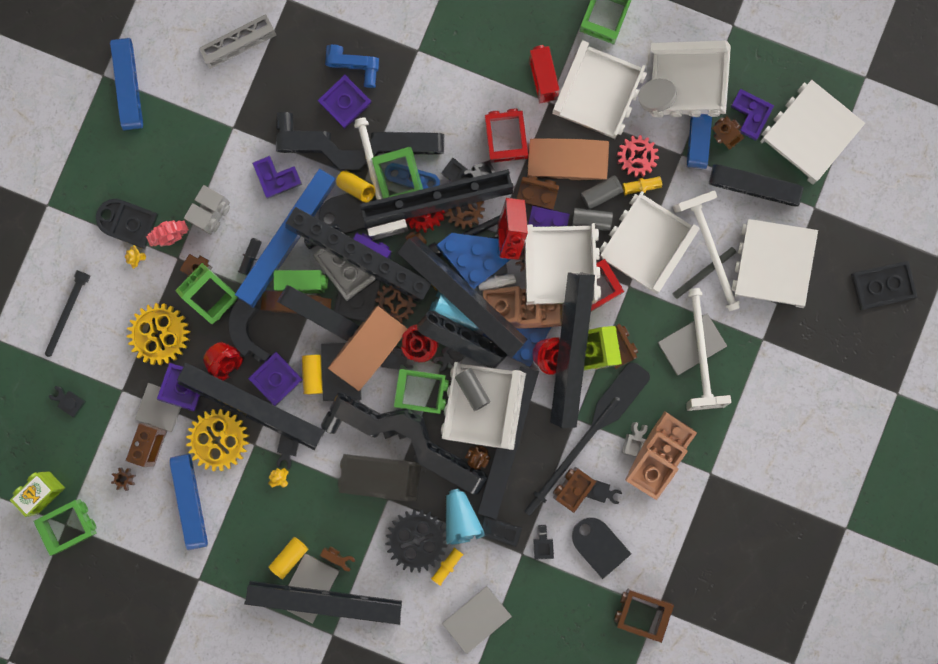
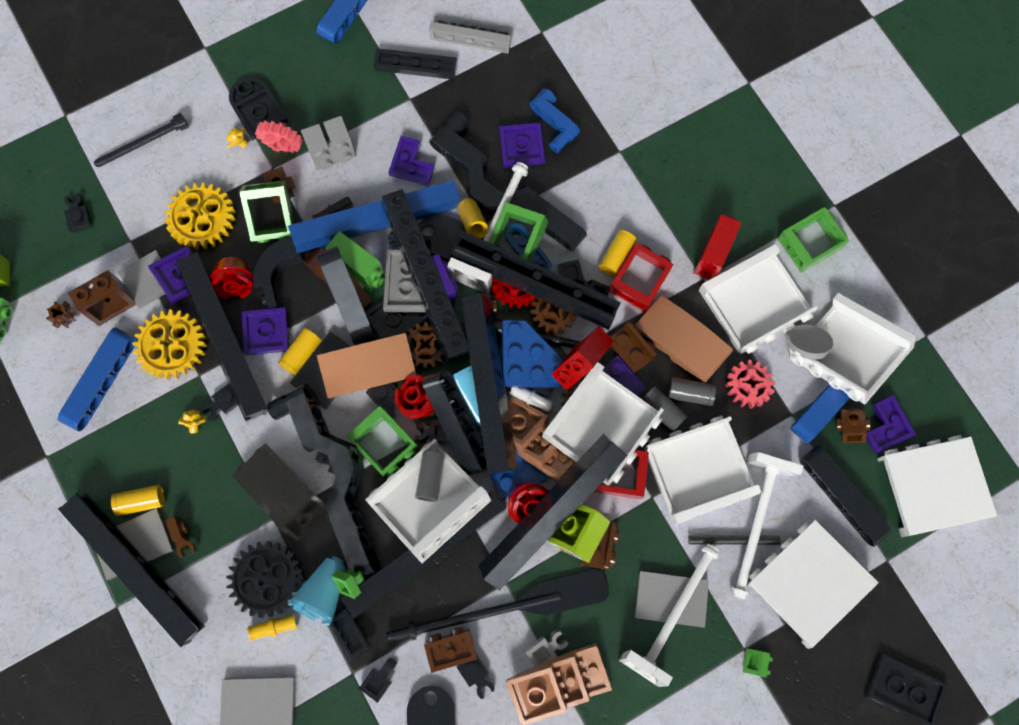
camera: 30 degrees right, 10 degrees down
(216, 98) = (415, 64): none -> black plate
(475, 499) = (348, 582): none -> bright green tile
(476, 131) = (617, 253): none -> yellow pin
(477, 457) = (385, 545): reddish brown gear -> none
(642, 185) = (735, 413): yellow pin -> none
(777, 342) = (757, 663): none -> bright green tile

